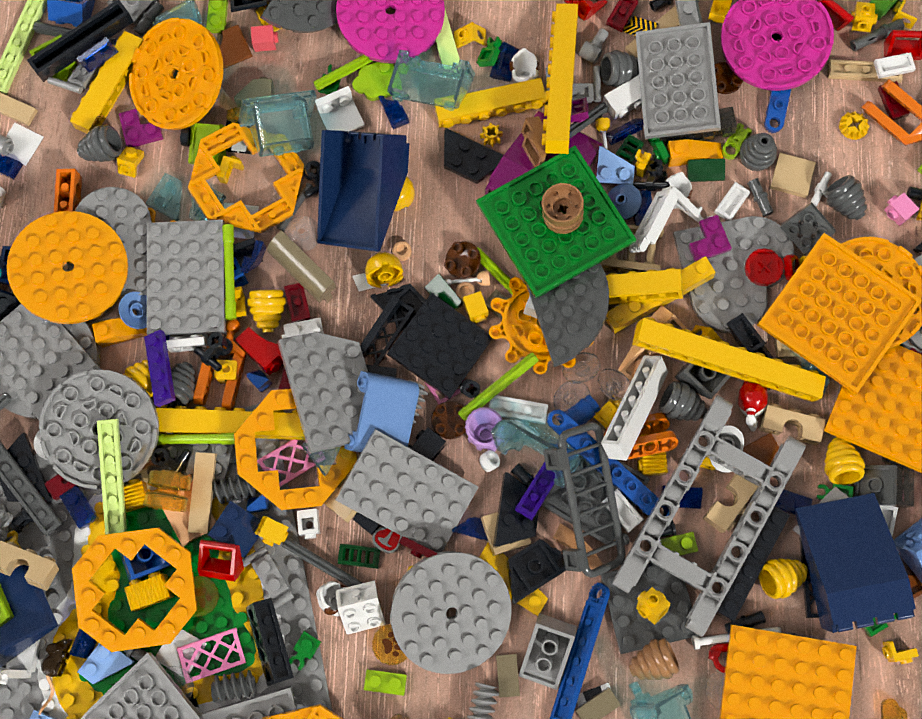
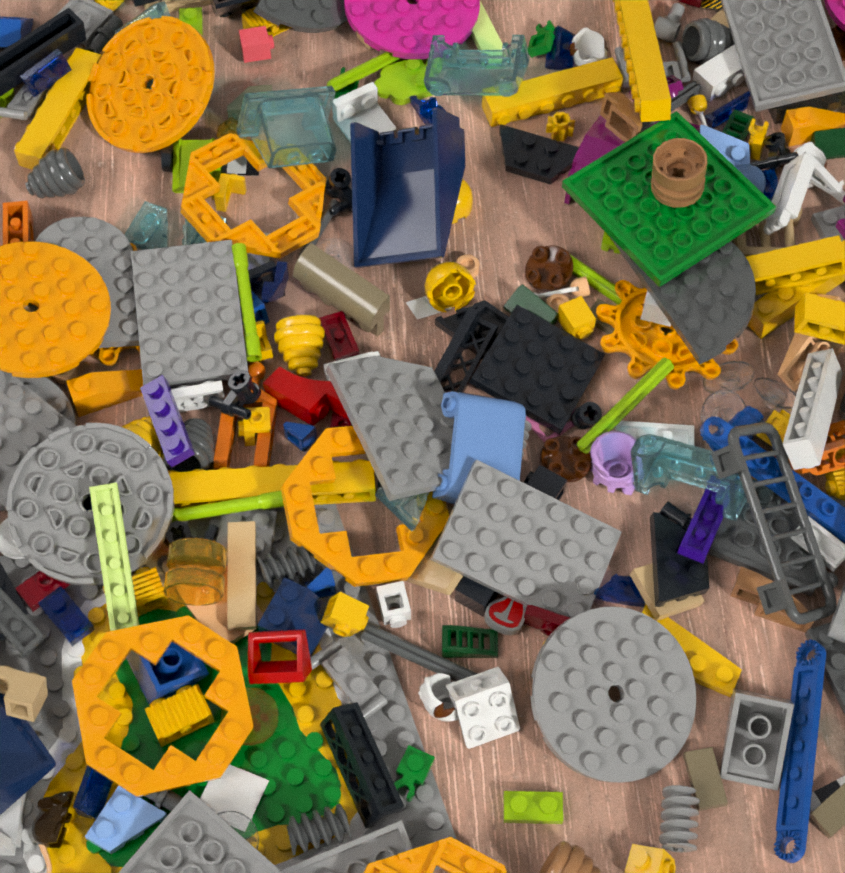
camera: 10 degrees left, 15 degrees down
(129, 160) = (95, 193): yellow bracket -> none
(136, 302) = (123, 358): medium blue dish -> none
(137, 133) = (101, 163): magenta plate -> none
(225, 665) = (284, 770): bright pink window -> none
(234, 47) = (224, 59): dark orange tile -> none
(275, 454) = (380, 534): bright pink window -> none
(386, 647) = (530, 756): clear yellow tile -> none
(468, 34) = (512, 21): yellow bracket -> none
(489, 461) = (629, 502): white tile -> none
(533, 569) = (716, 630): black wing -> none
(659, 150) = (775, 121): green plate -> none

